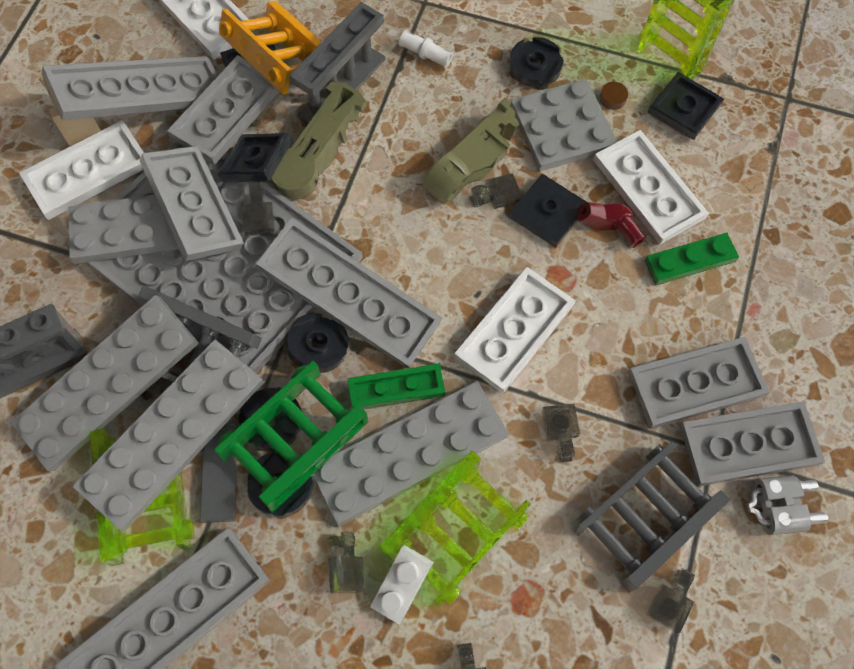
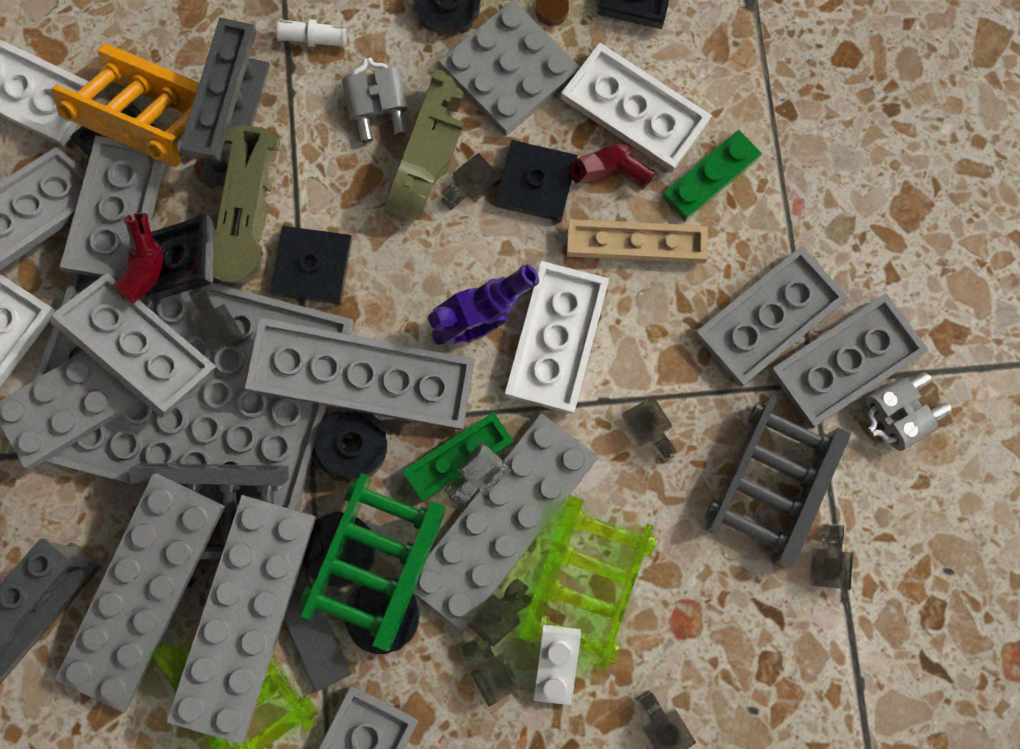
camera: 25 degrees left, 10 degrees up
(227, 147) = (143, 260): none -> dark red arm
(350, 205) = (311, 265): none -> black plate
(371, 524) = (499, 617): none -> clear smoke plate
(408, 402) = (480, 471): none -> clear smoke plate
(452, 106) = (375, 96): none -> light grey piece
(460, 281) = (479, 310): none -> dark purple piece
(610, 283) = (637, 241): none -> tan plate

